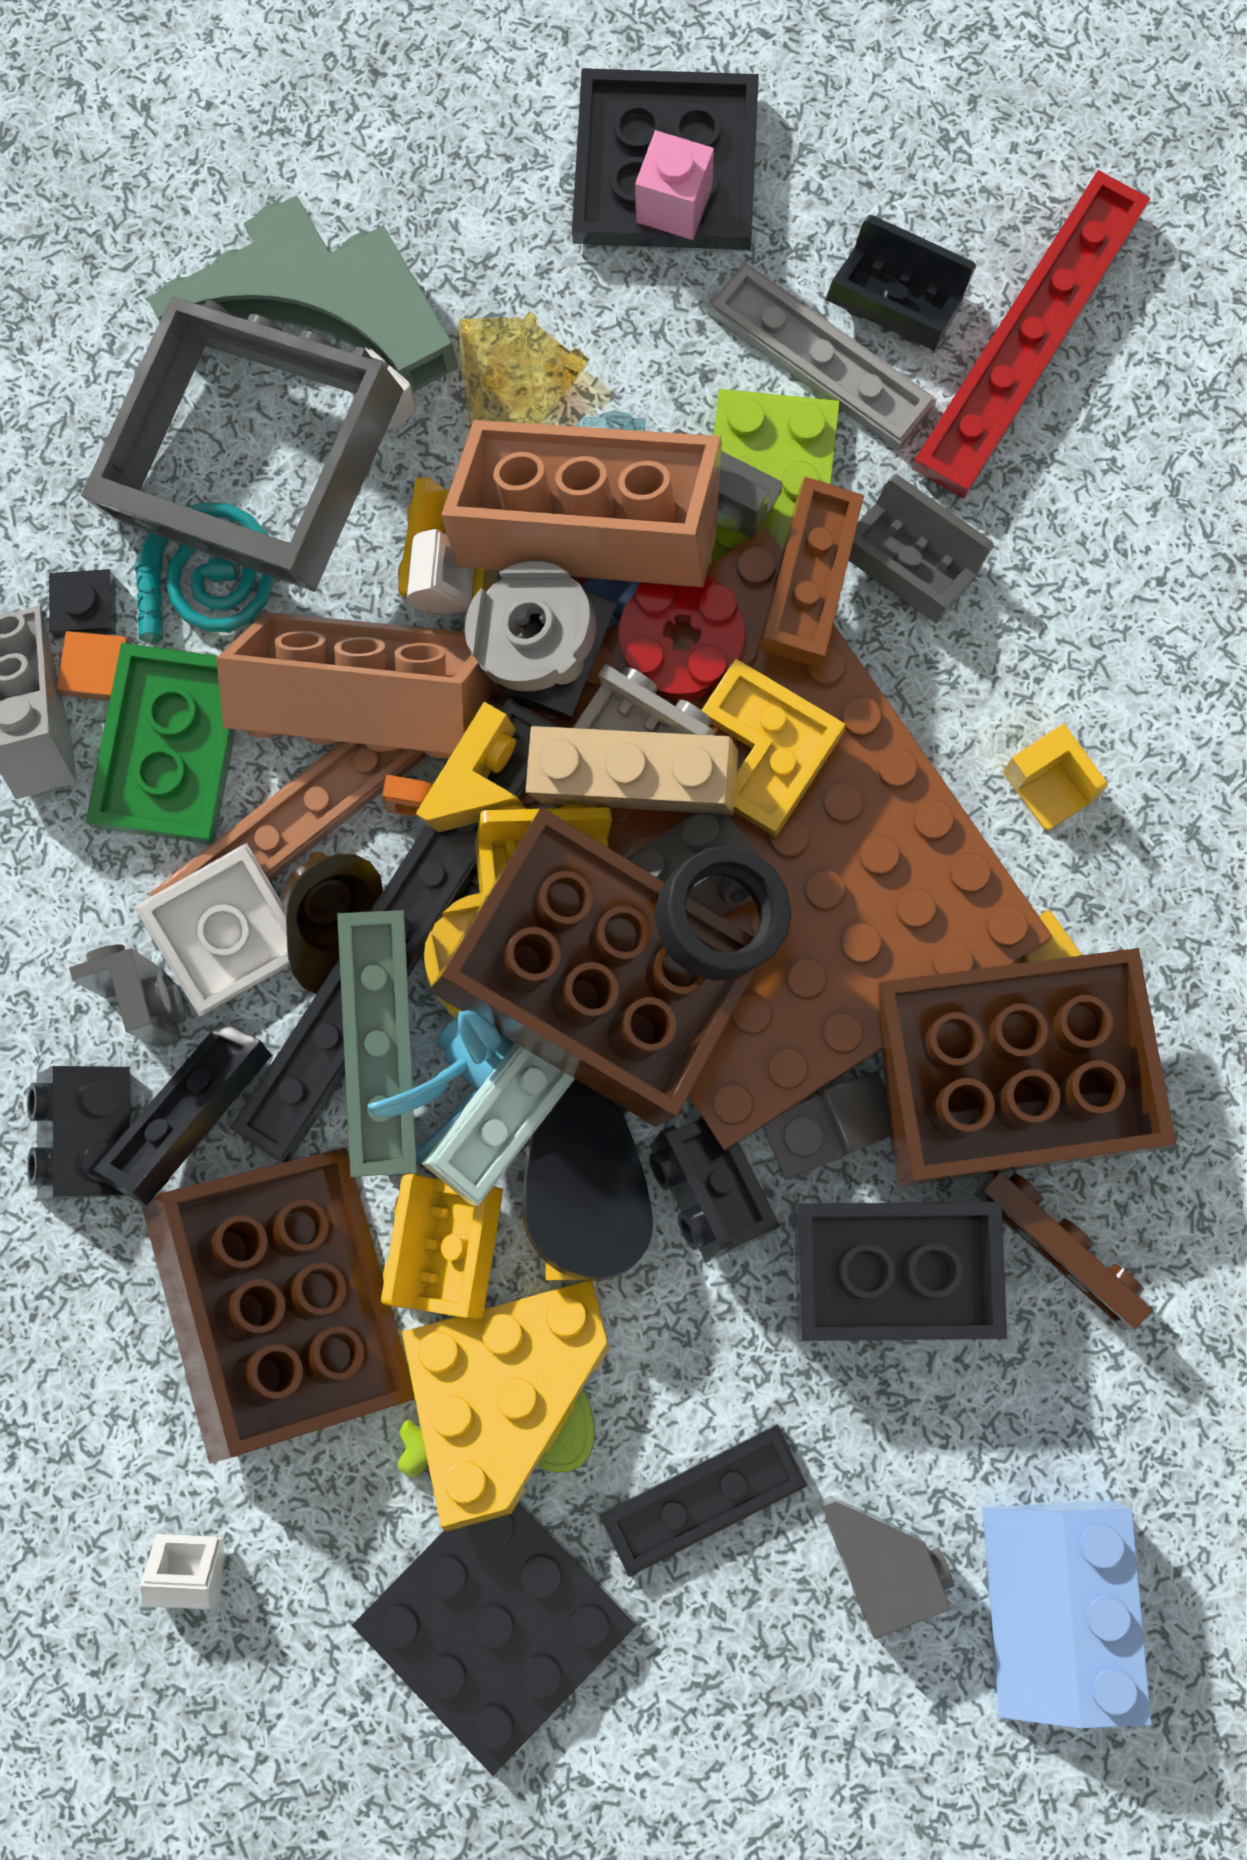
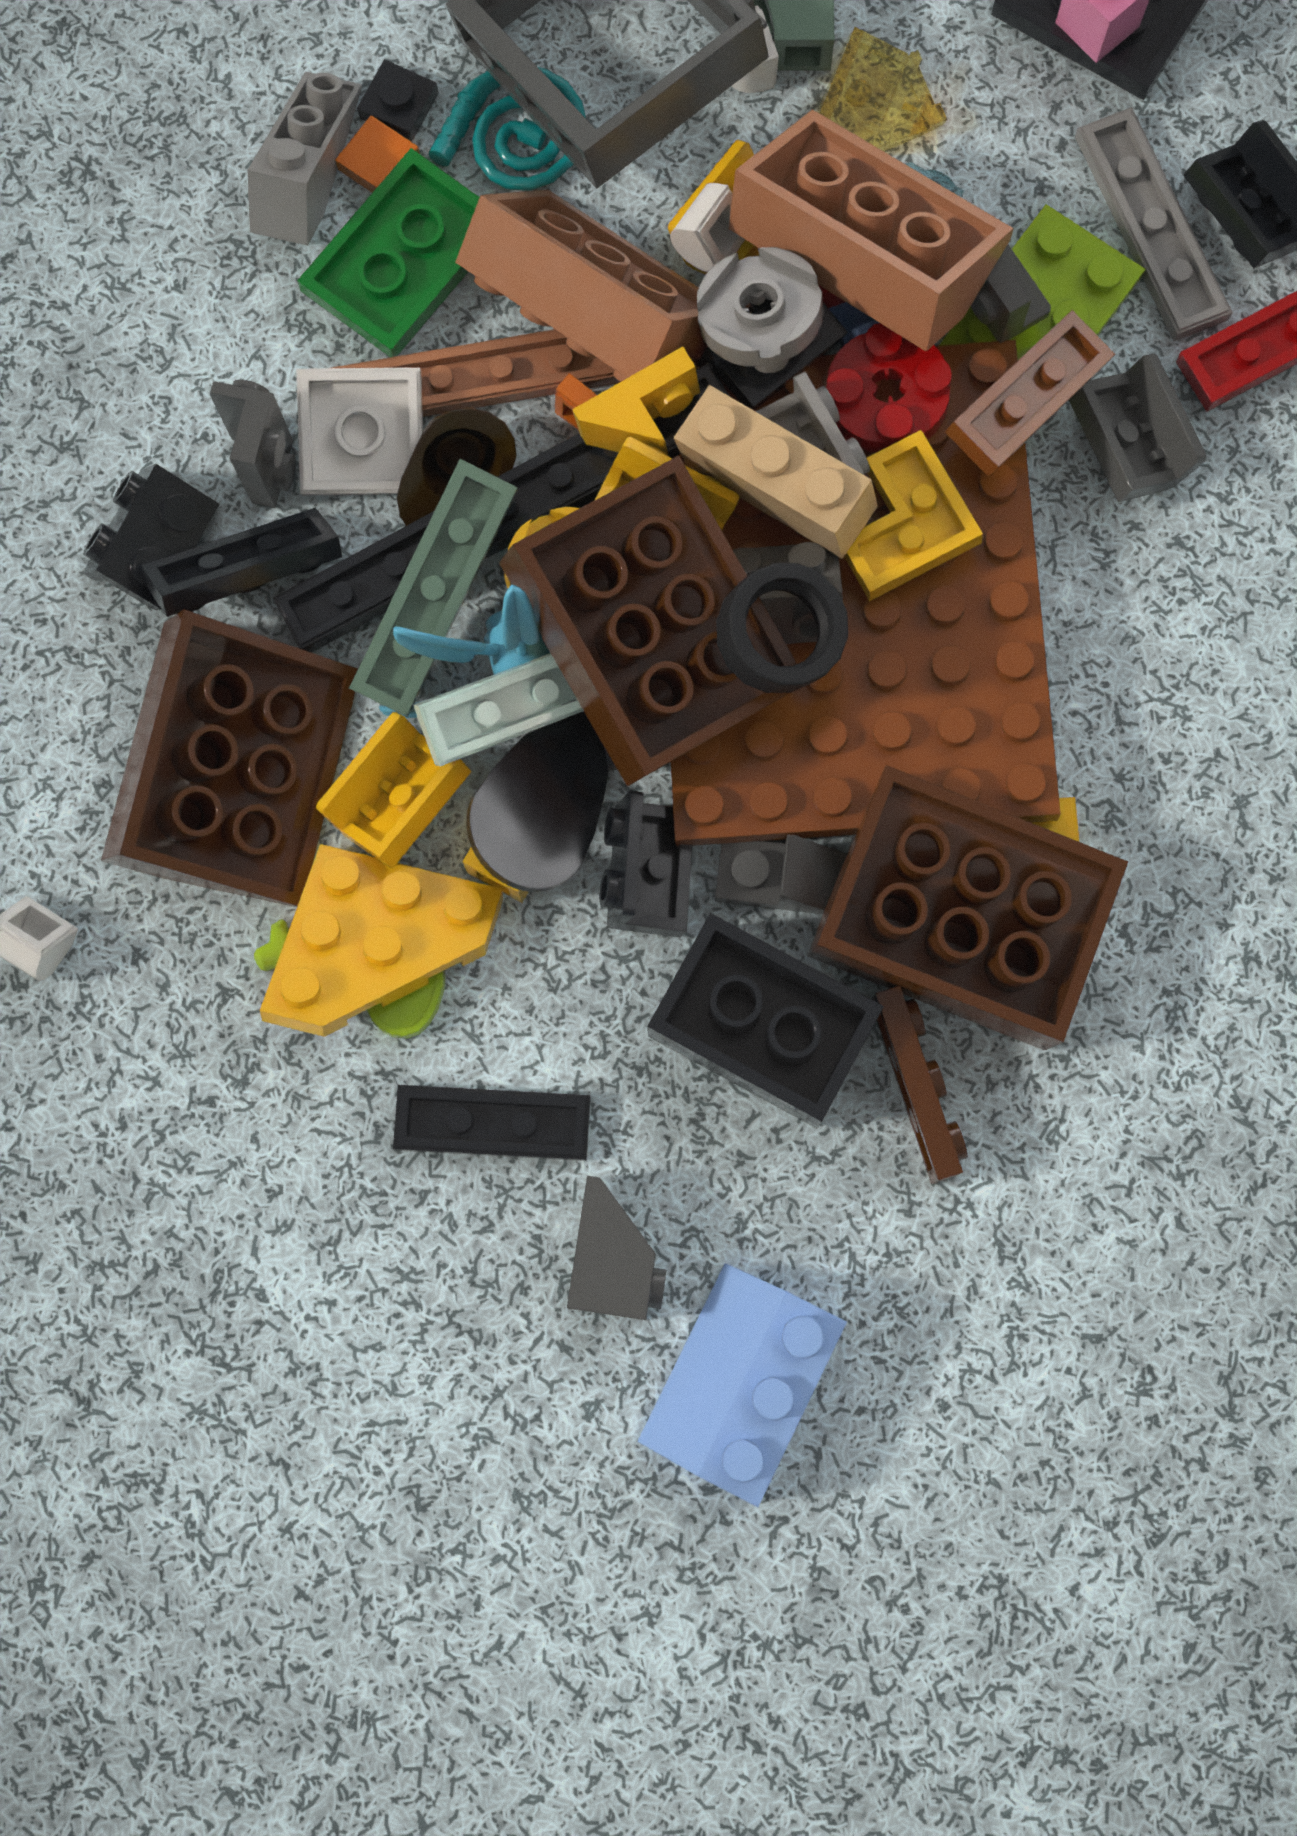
camera: 25 degrees right, 0 degrees up
(495, 1630) = (258, 1128): black plate -> none
(1055, 777) = (1144, 687): yellow panel -> none

